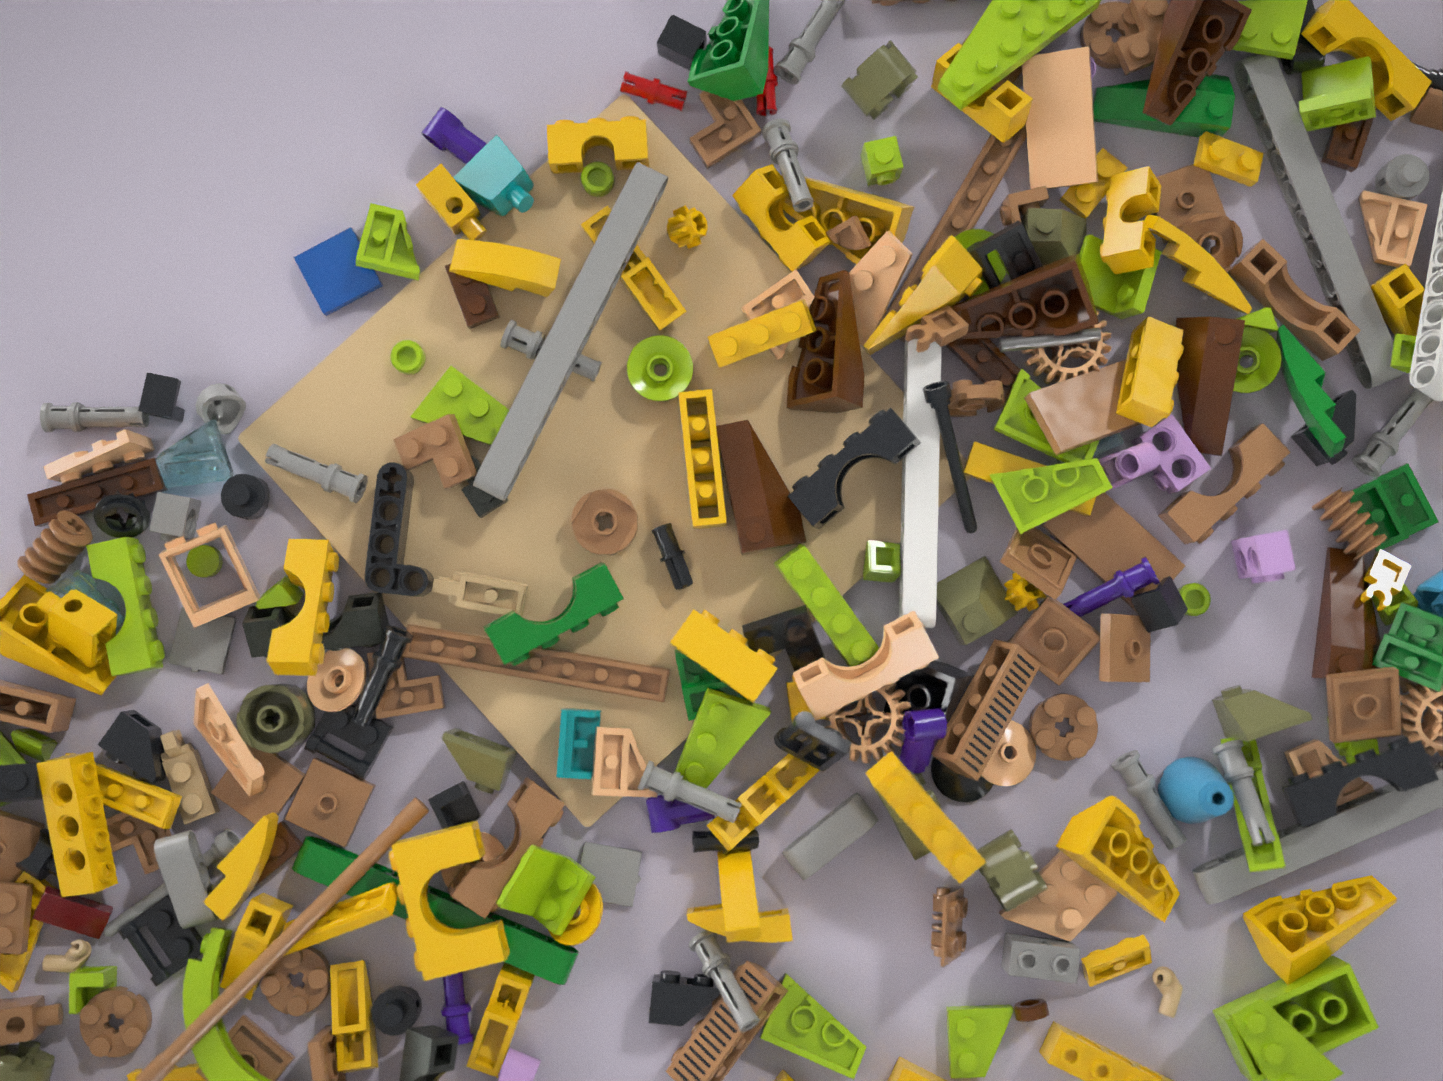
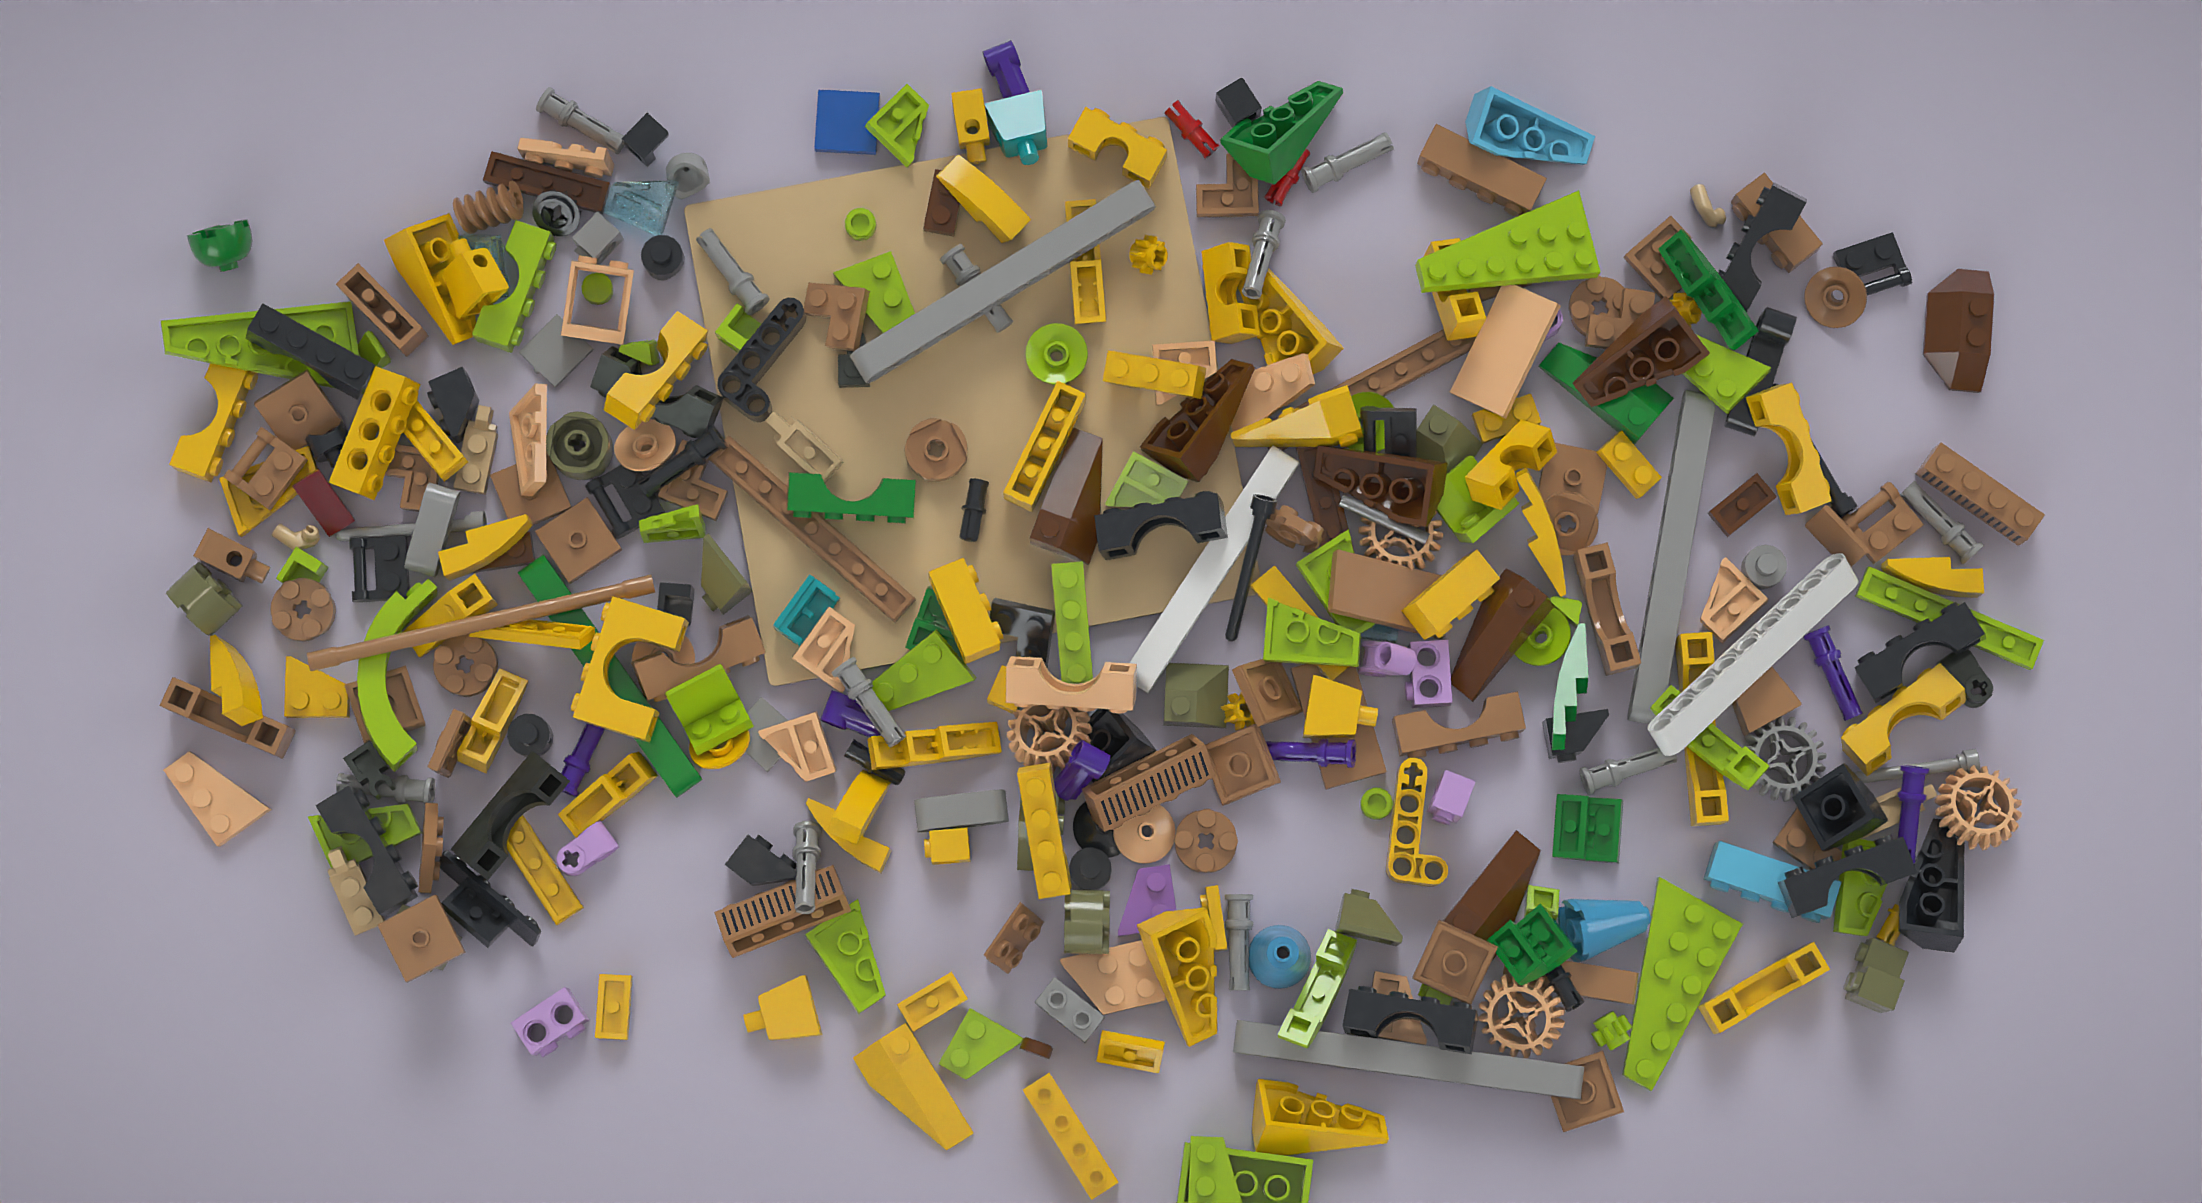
camera: 30 degrees right, 5 degrees down
(353, 521) = (737, 328): none -> lime panel
(408, 737) = (673, 525): none -> lime wing
(597, 179) = (1101, 173): lime tile -> none
(650, 866) = (802, 745): none -> light nougat wing
(813, 438) = (1145, 483): none -> lime wing
(820, 748) = (998, 729): black plate -> none
(839, 877) = (948, 846): none -> yellow brick
(849, 234) = (1276, 339): medium nougat tile -> none
(880, 78) = (1378, 229): olive brick -> none
(882, 161) = (1340, 296): lime brick -> none
(882, 561) = (1139, 617): lime slope -> none
(911, 1025) = (932, 1001): none -> yellow plate
(939, 326) = (1299, 454): medium nougat plate -> none
(978, 817) = (1090, 869): none -> black piece
(1021, 202) = (1432, 395): medium nougat bracket -> none
(1046, 811) = (1149, 896): none -> medium lavender wing
(1107, 783) = (1212, 903): none -> yellow plate
(1111, 540) = (1335, 710): none -> yellow torso
(1124, 649) = (1293, 804): medium nougat plate -> none
(1160, 606) = (1342, 786): black panel -> none
(1170, 988) = (1161, 1102): tan arm -> none
(1239, 595) = (1413, 822): none -> yellow beam
(1239, 776) = (1318, 959): light grey pin -> none
(1337, 94) = (1747, 465): lime bracket -> none
(1349, 523) = (1539, 815): medium nougat piece -> none
(1386, 578) = (1542, 877): plate -> none

